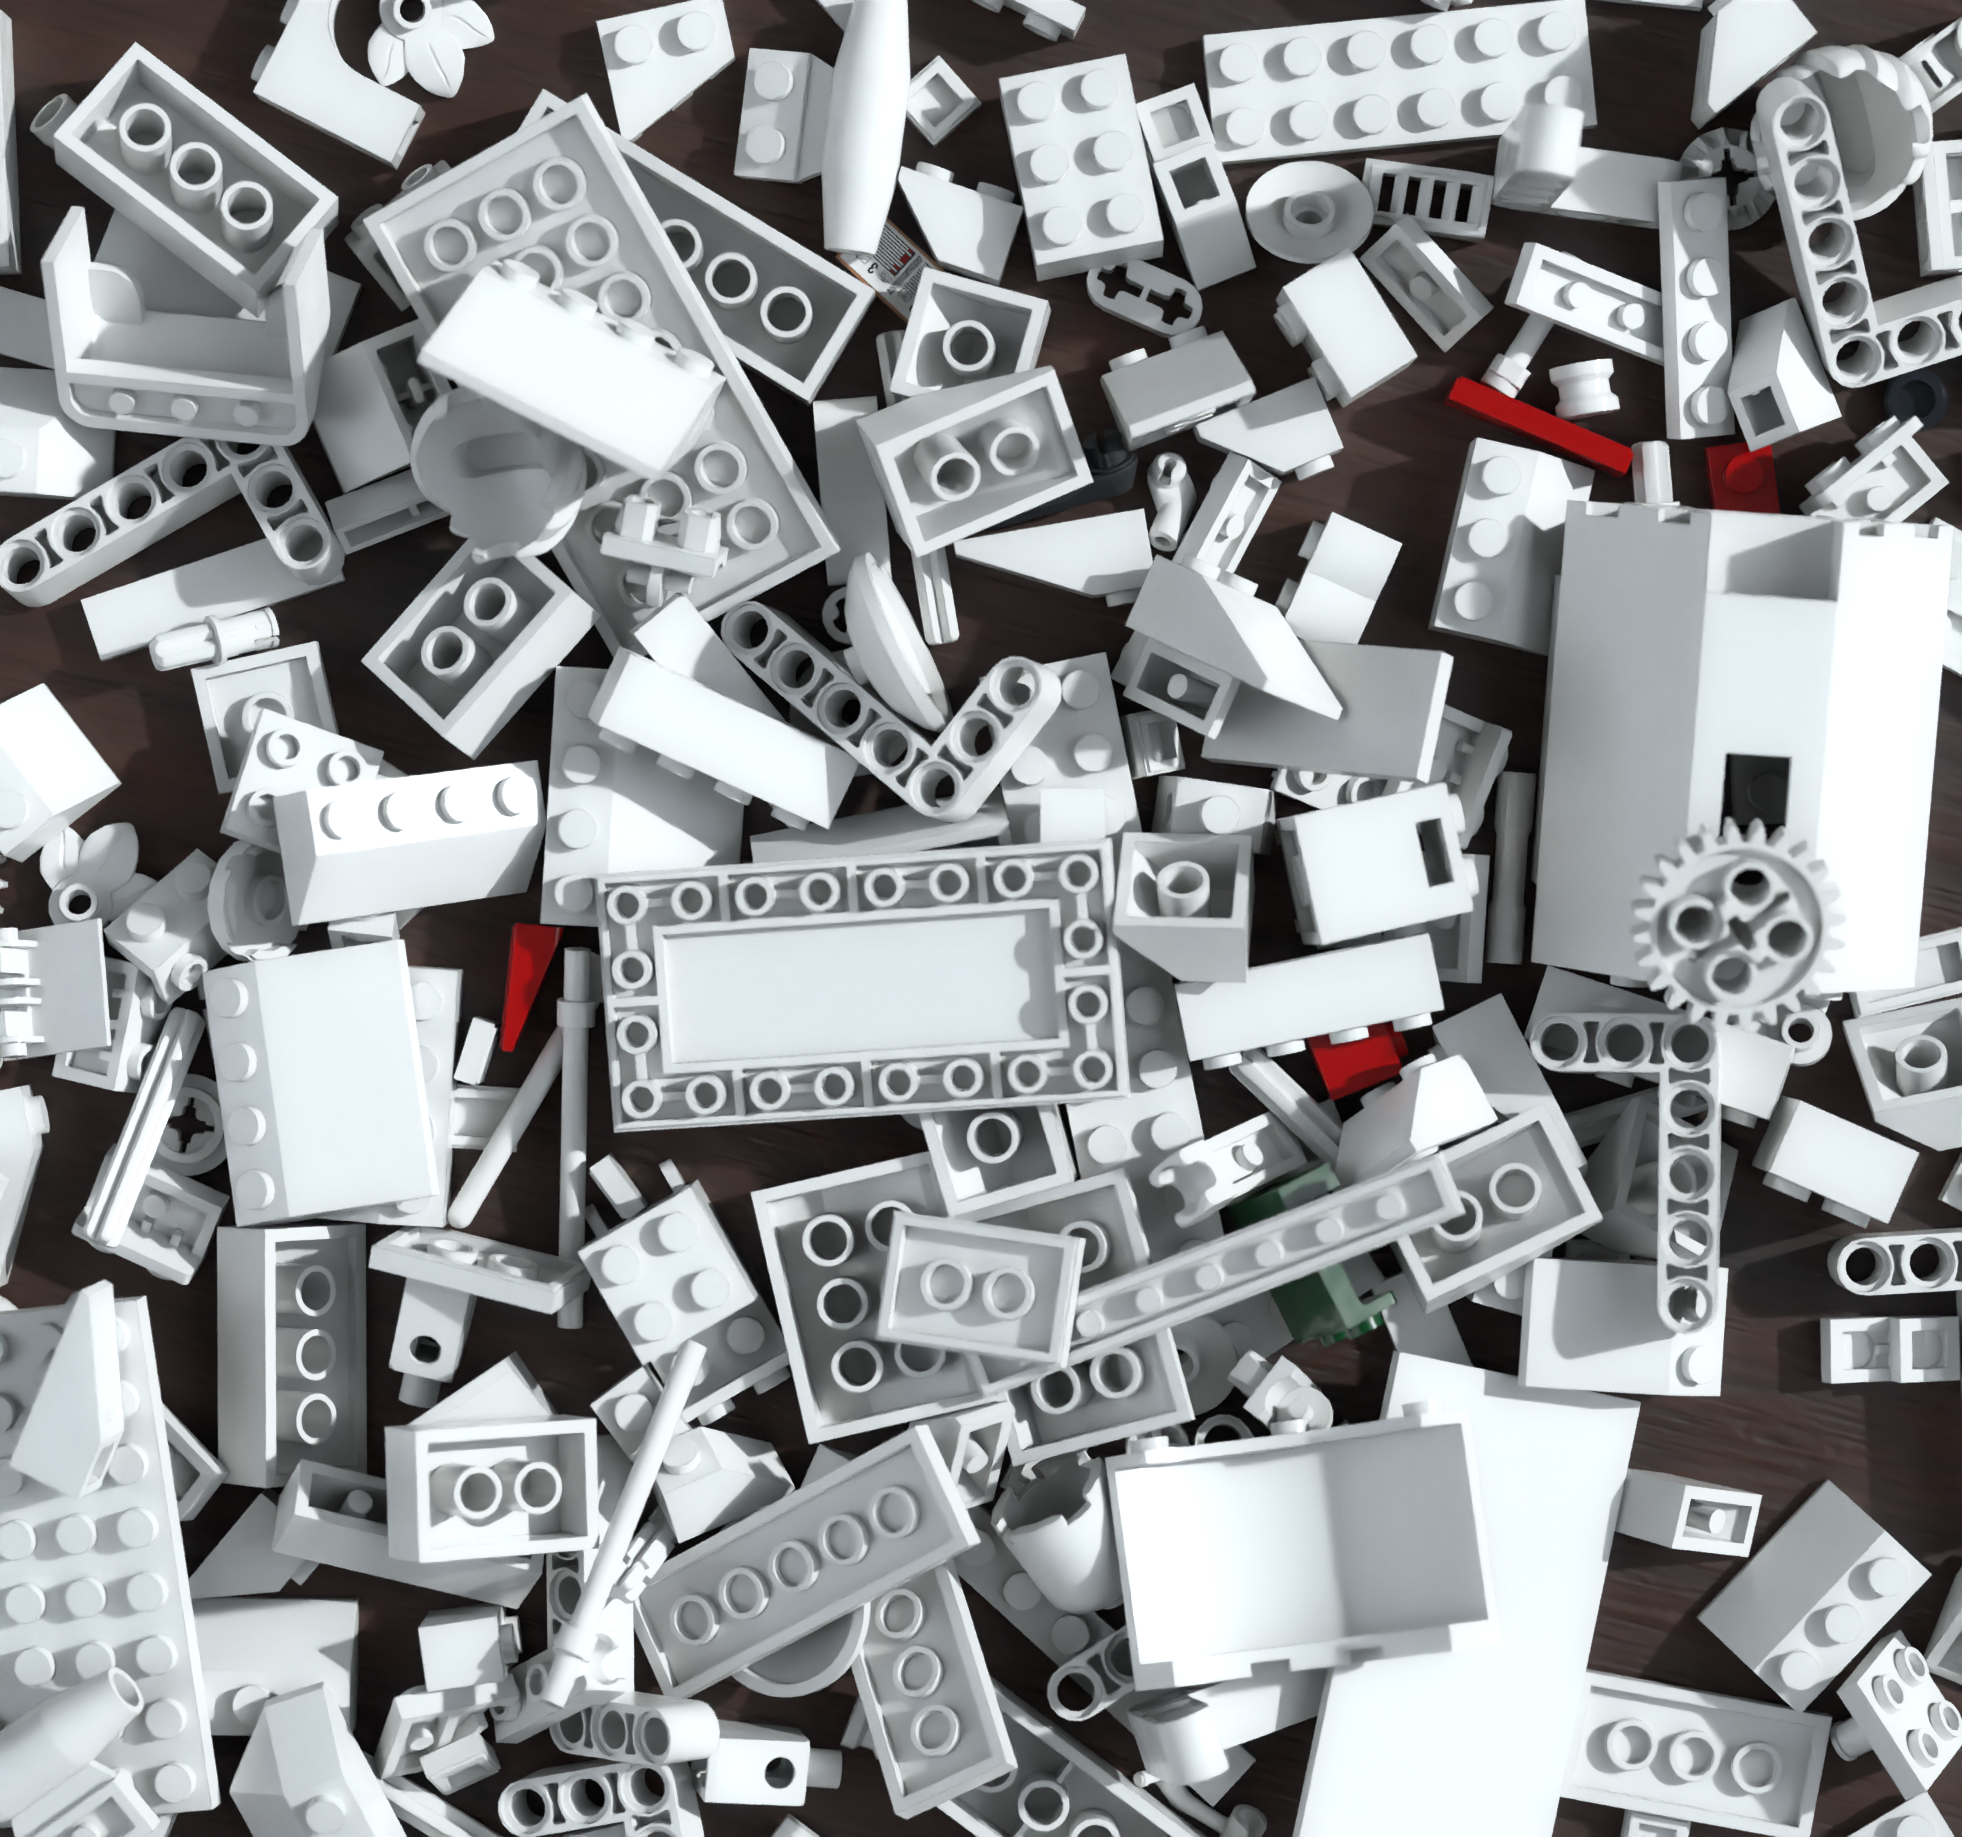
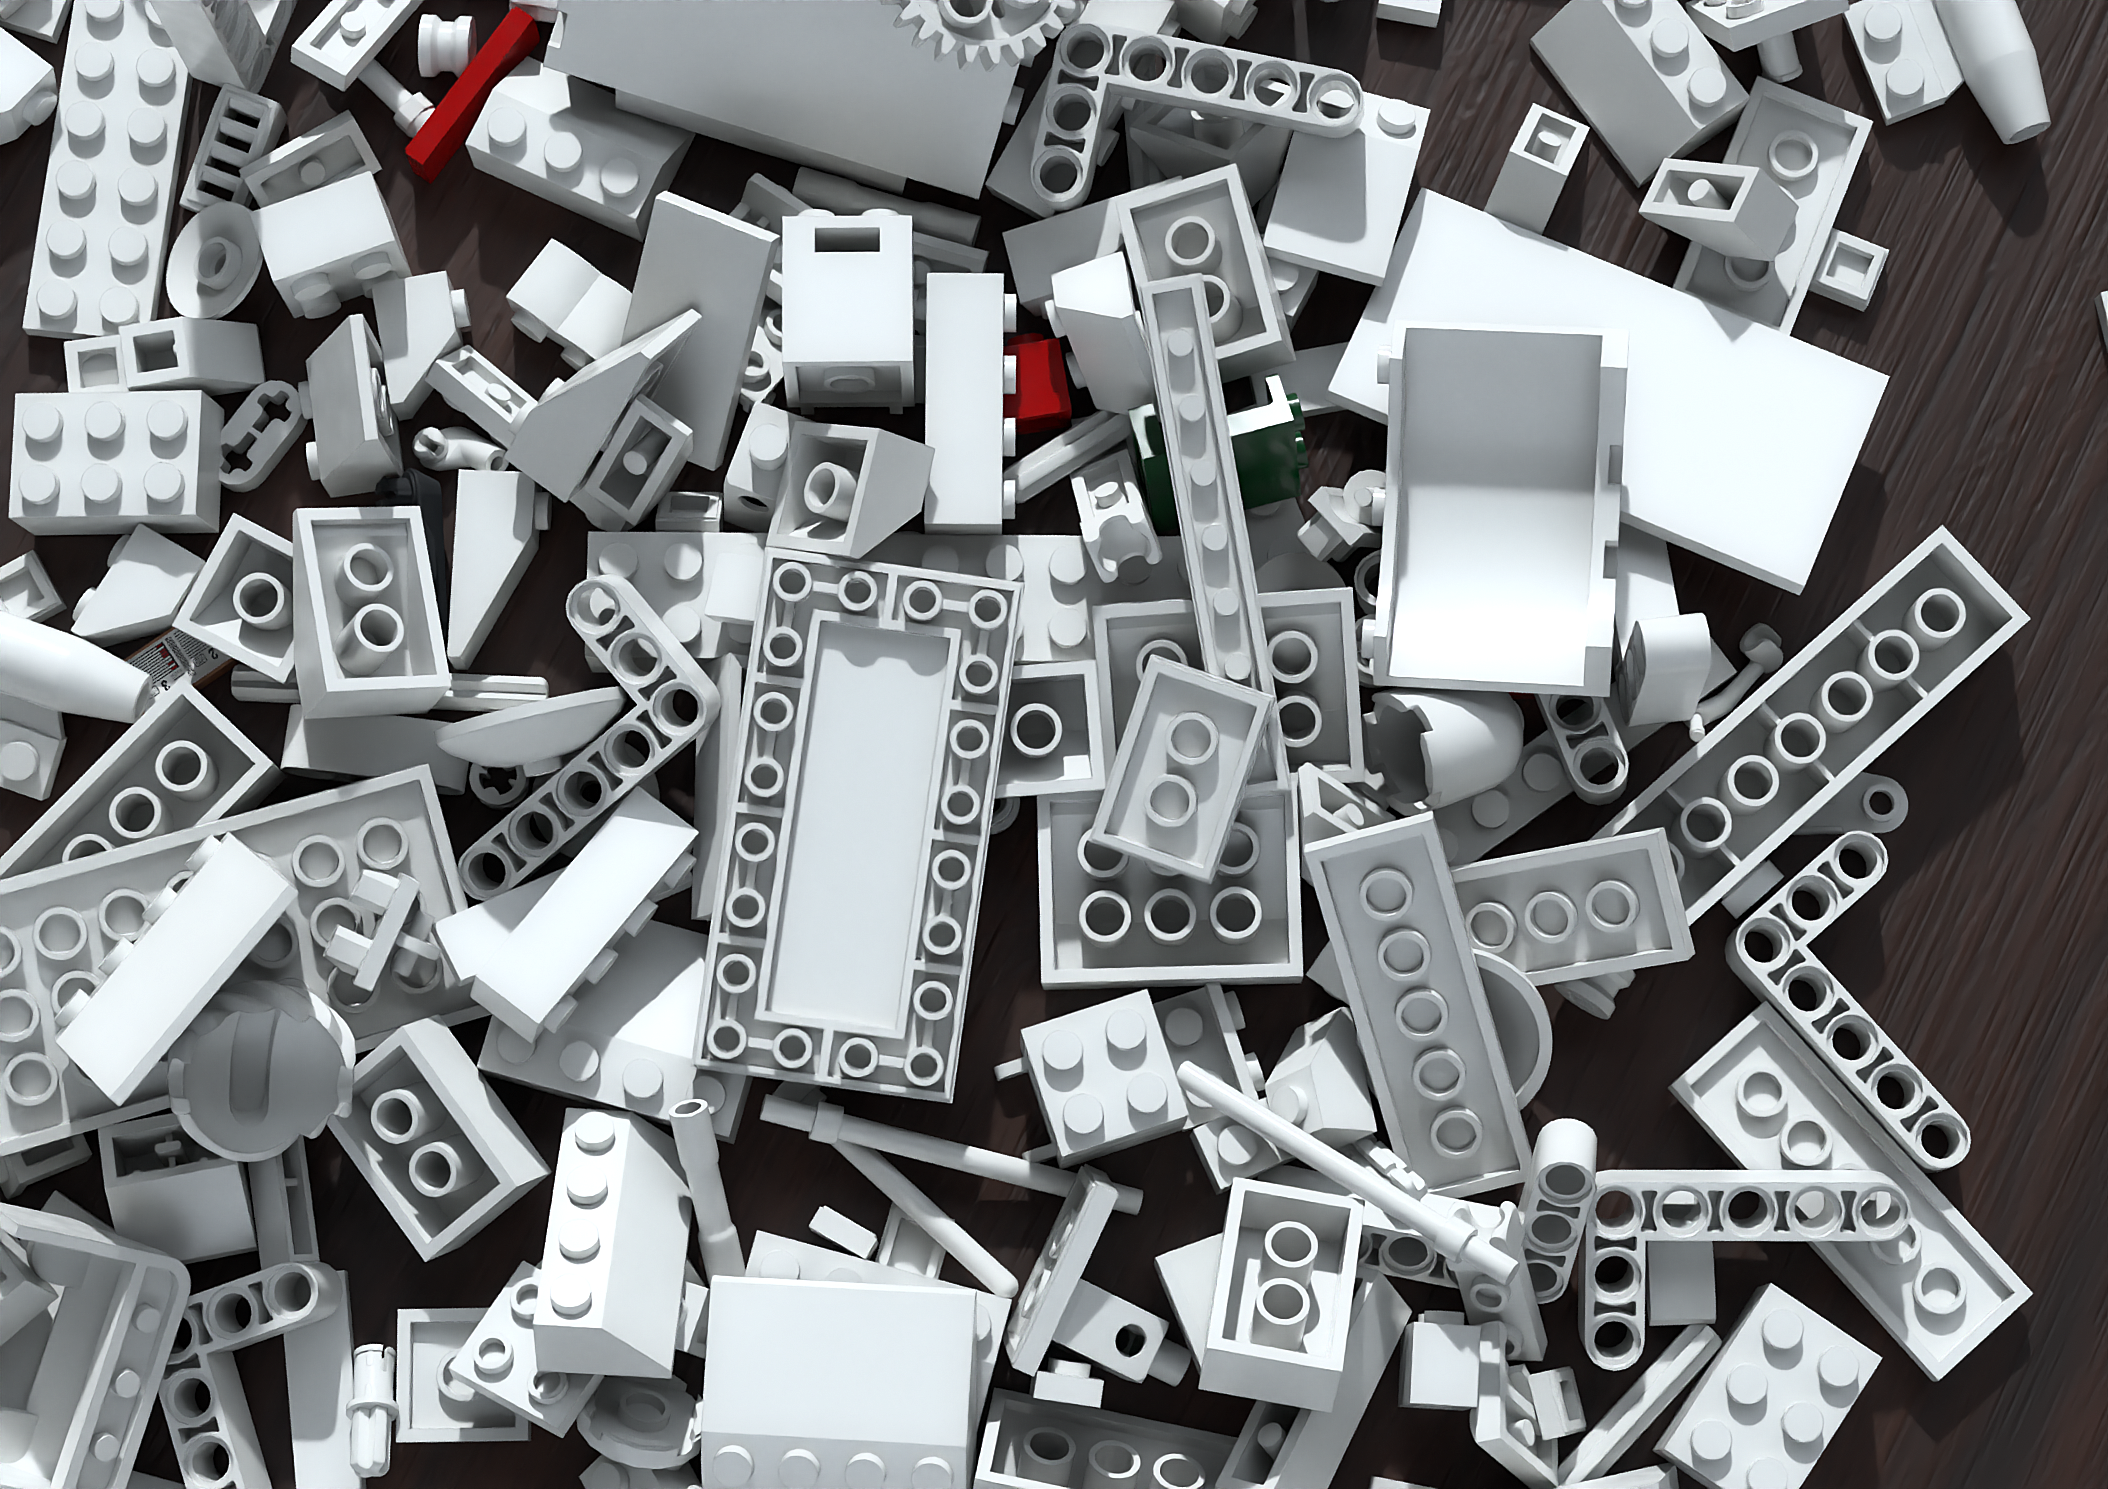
camera: 85 degrees left, 10 degrees down
(373, 1298) = (1068, 1383): none -> white plate
(512, 901) = (700, 1158): none -> white piece
(530, 959) = (767, 1163): red slope -> none
(618, 1187) = (1010, 1122): white tile -> none
(739, 1763) = (1618, 1093): white torso -> none
(1677, 1705) = (1721, 207): none -> white slope

